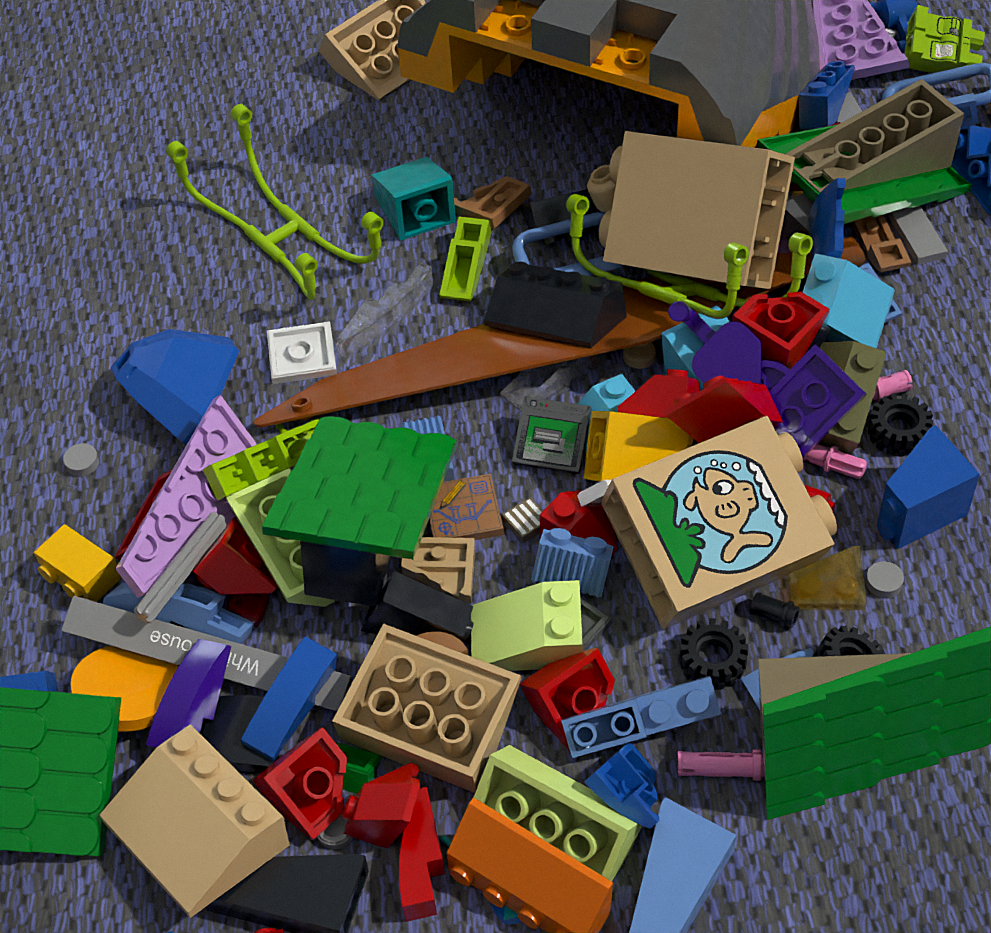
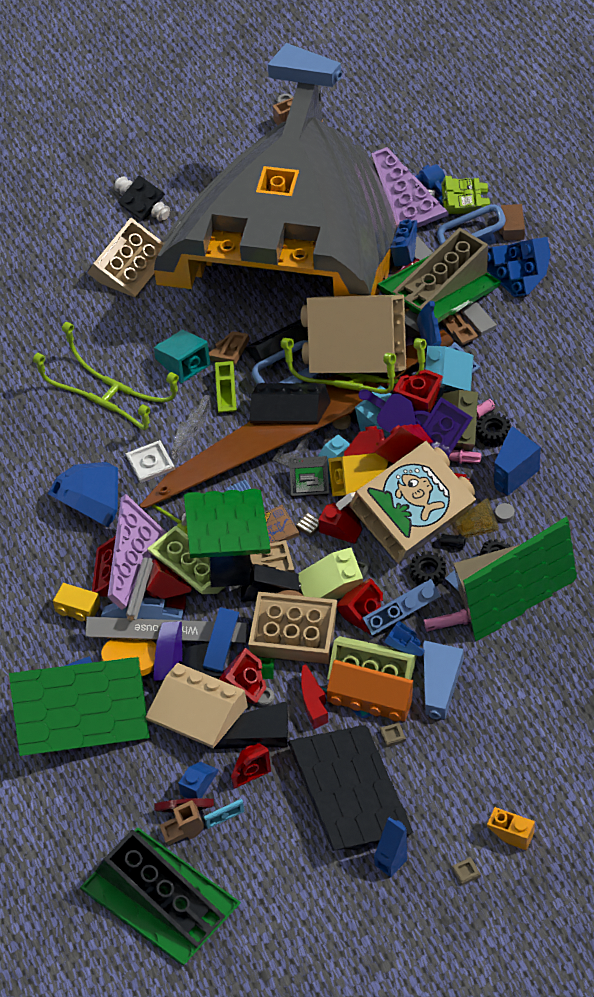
camera: 15 degrees left, 0 degrees up
(81, 459) = (49, 548): light grey tile -> none
(258, 461) = (159, 524): lime slope -> none
(382, 807) = (287, 679): red slope -> none
(571, 559) = (340, 538): medium blue brick -> none
(601, 188) = (296, 330): tan head -> none

